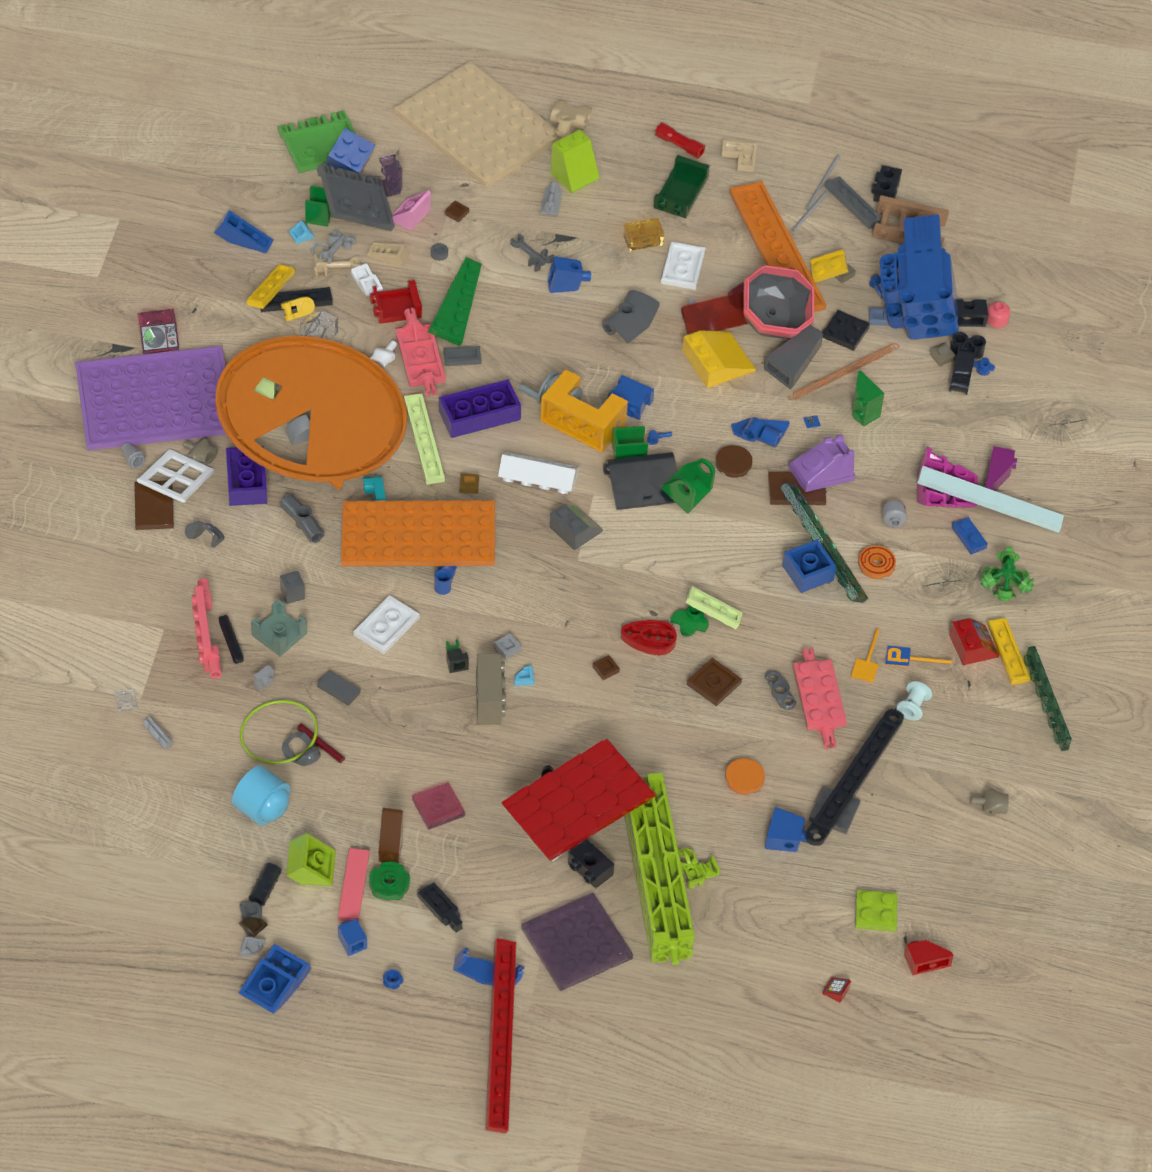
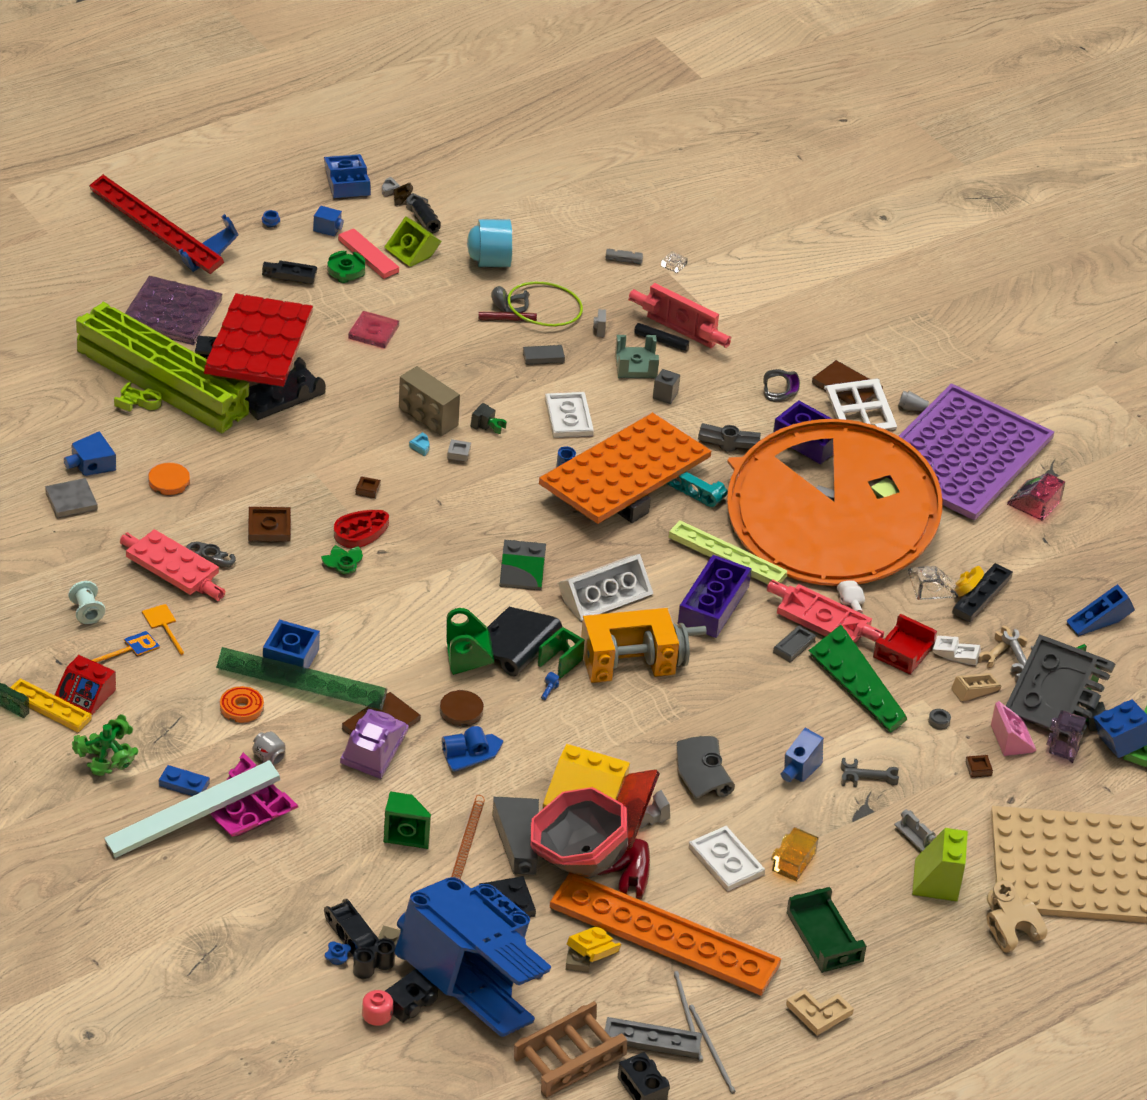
camera: 135 degrees right, 10 degrees down
(270, 286) = (1013, 582): yellow tile -> none
(391, 835) = (372, 272): reddish brown slope -> none
(469, 483) = (646, 544): pearl gold plate -> none
(635, 393) = (611, 696): blue hips -> none
(669, 134) = (874, 982): red axle -> none
(714, 607) = (331, 567): yellowish green plate -> none
(812, 421) = (438, 794): blue sticker -> none
(854, 777) = (76, 516): black plate -> none
(1000, 467) = (219, 855): magenta slope -> none

